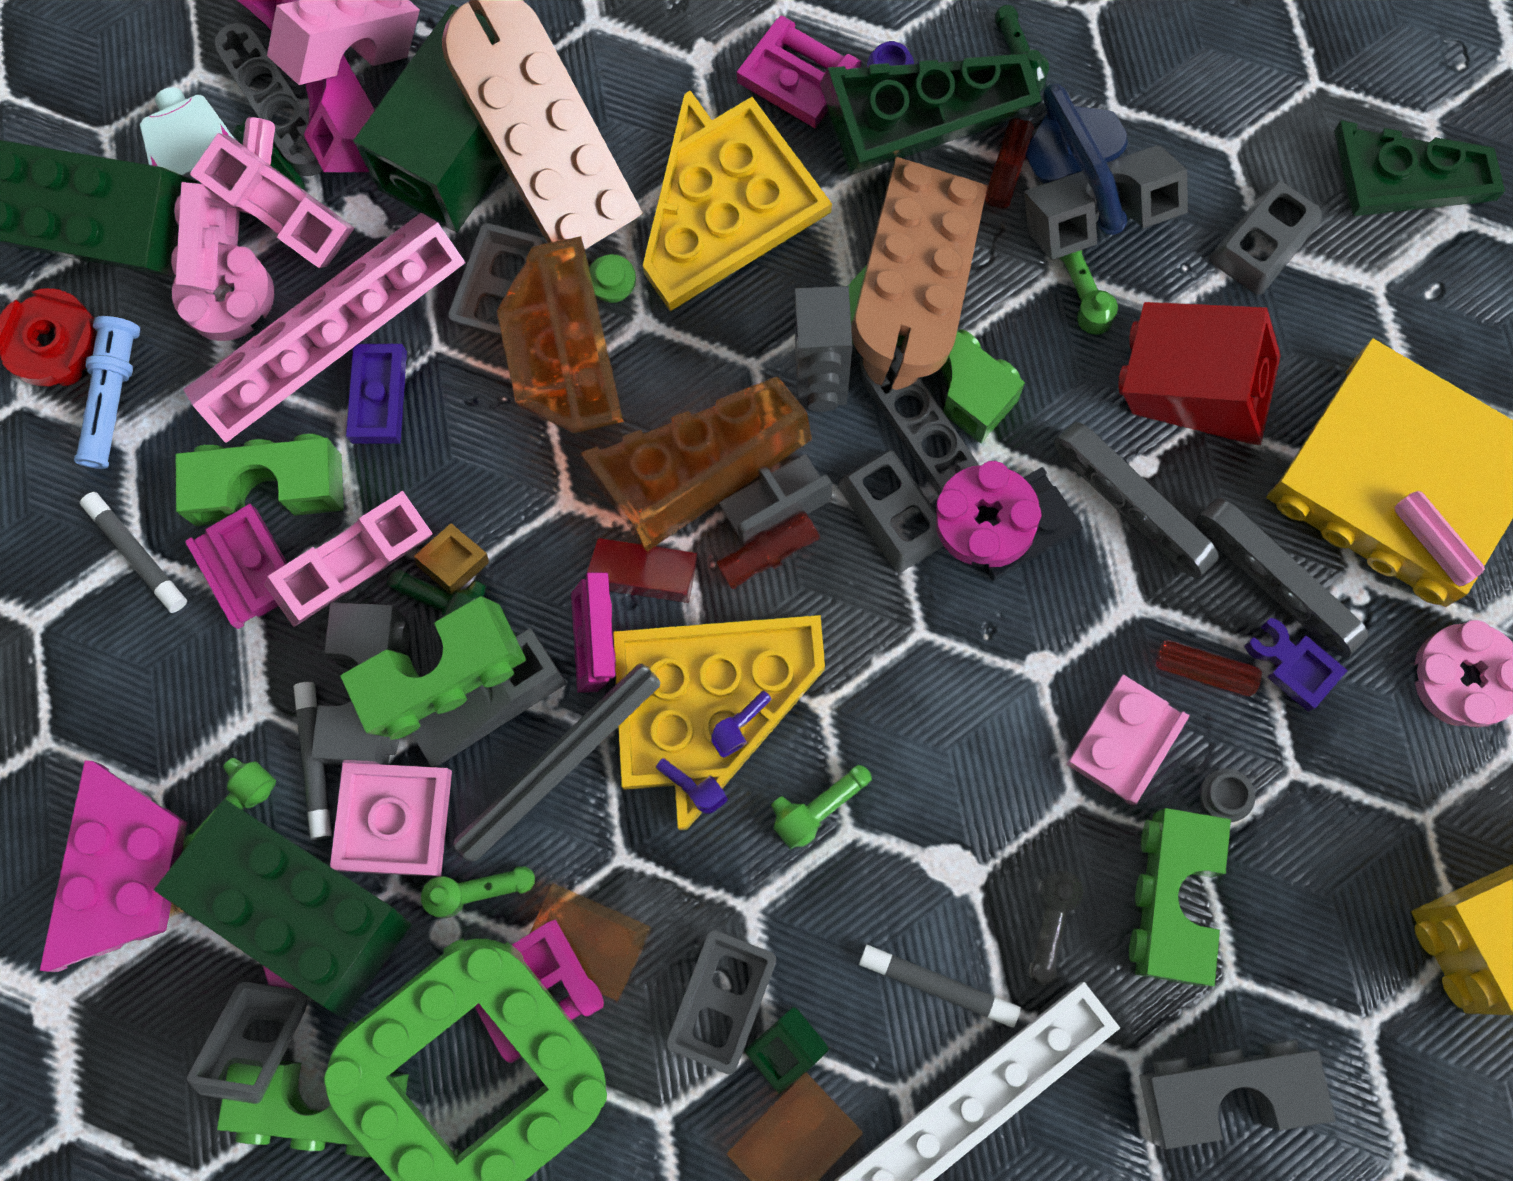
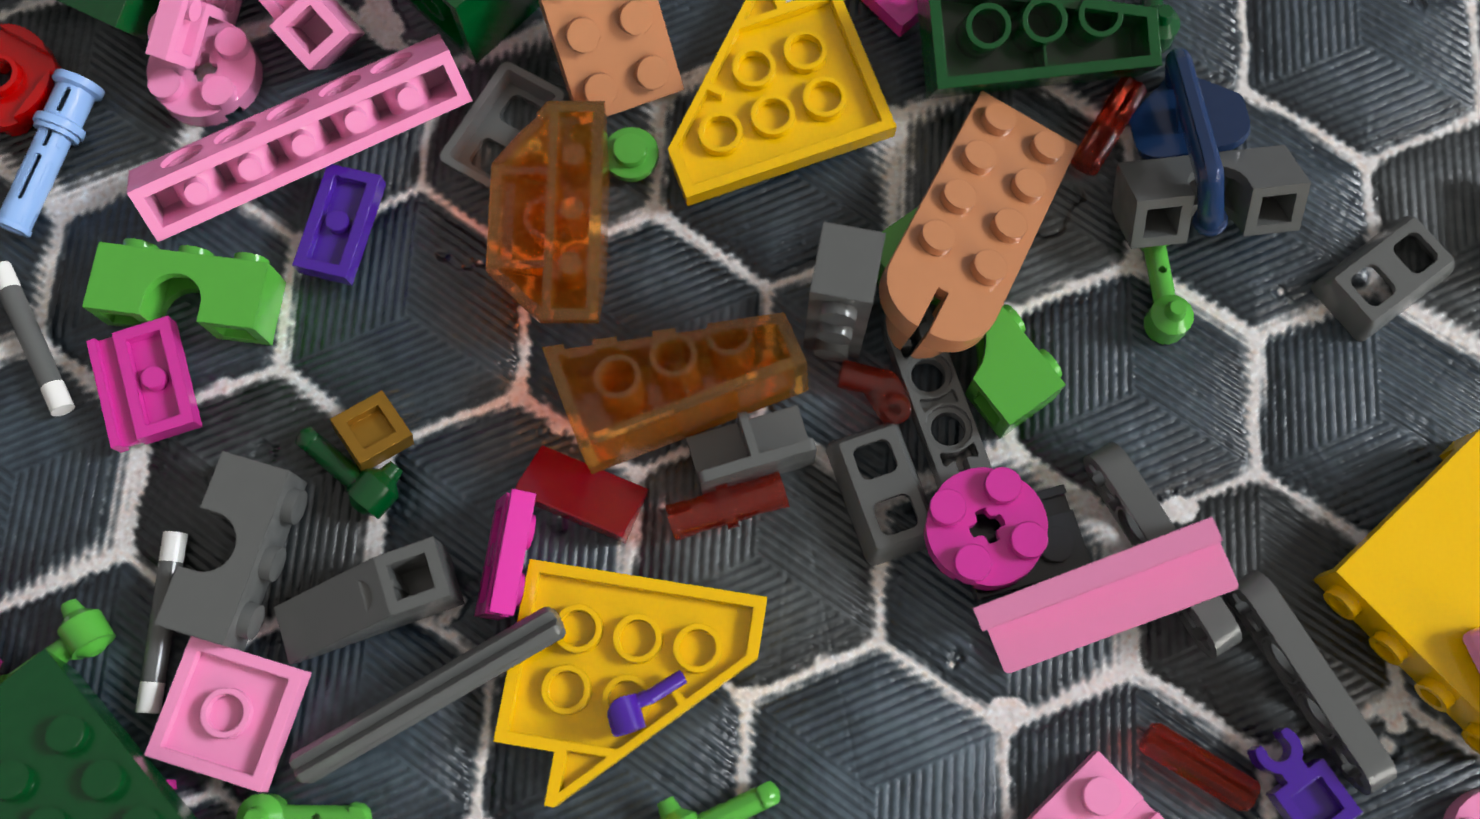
camera: 10 degrees right, 0 degrees up
(348, 559) = (253, 406): bright pink arch -> none
(476, 652) = (361, 550): bright green arch -> none
(706, 796) = (583, 778): dark purple hand -> none
(871, 423) = (881, 389): none -> clear red arm
(1100, 545) = (1108, 596): none -> bright pink panel
(1203, 368) = (1275, 414): red slope -> none

